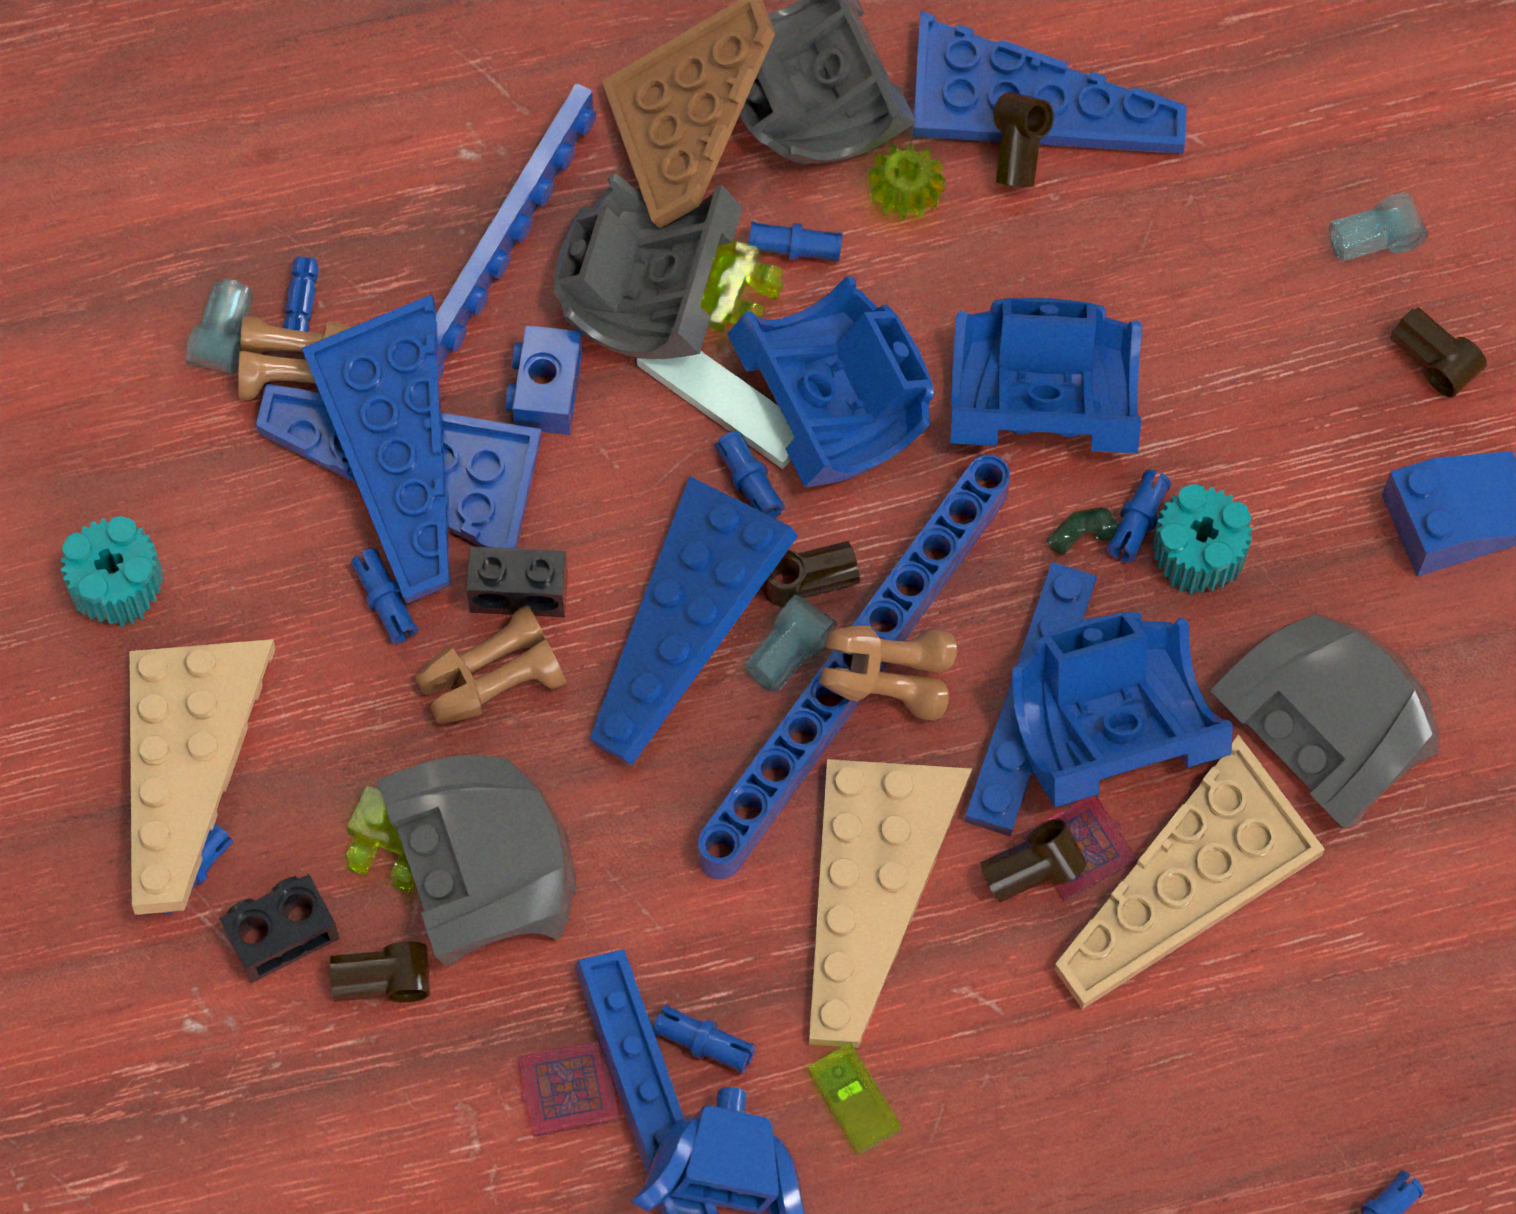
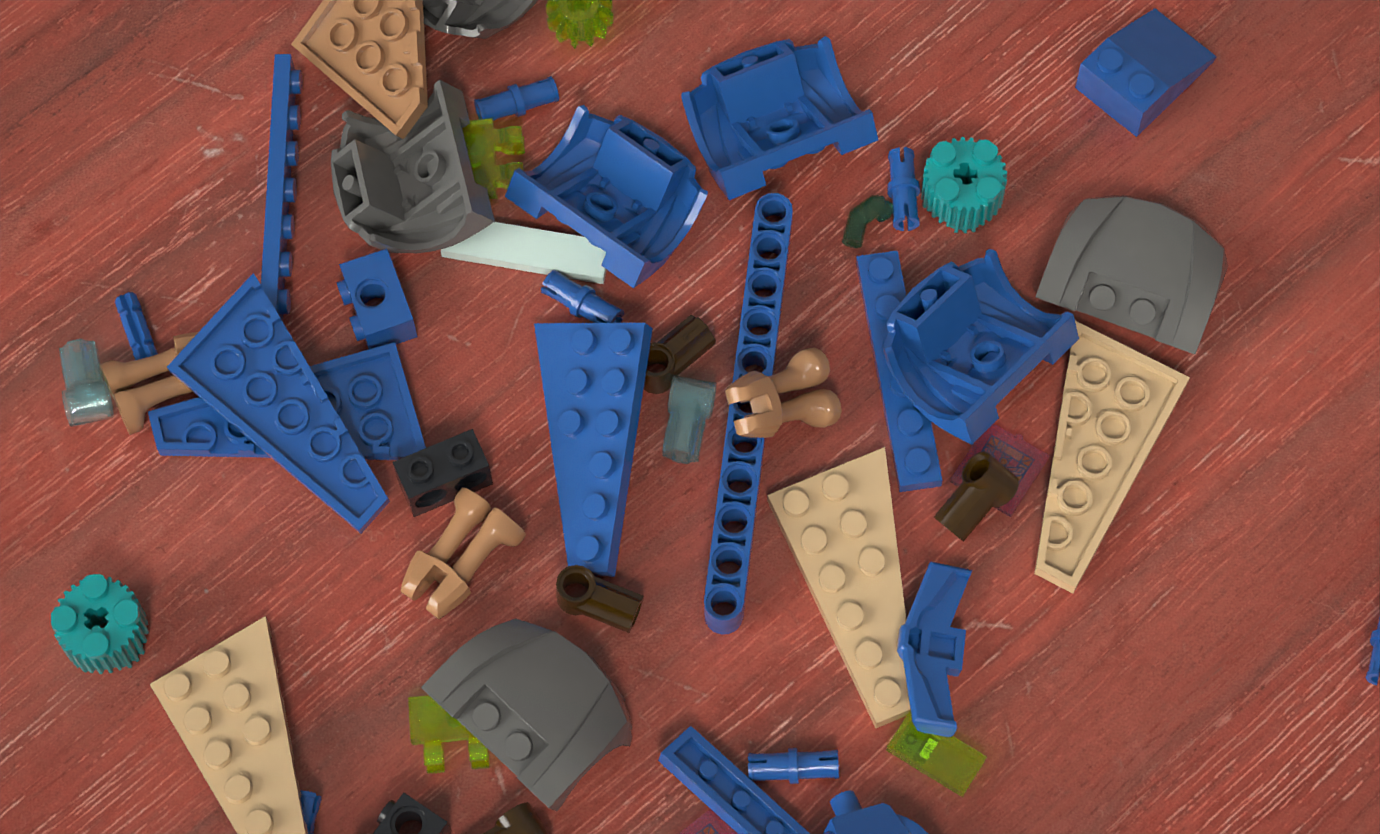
camera: 25 degrees left, 0 degrees up
(384, 596) = (338, 537): blue pin -> none
(604, 782) = (602, 600): none -> dark brown piece
(906, 991) = (933, 648): none -> blue plate

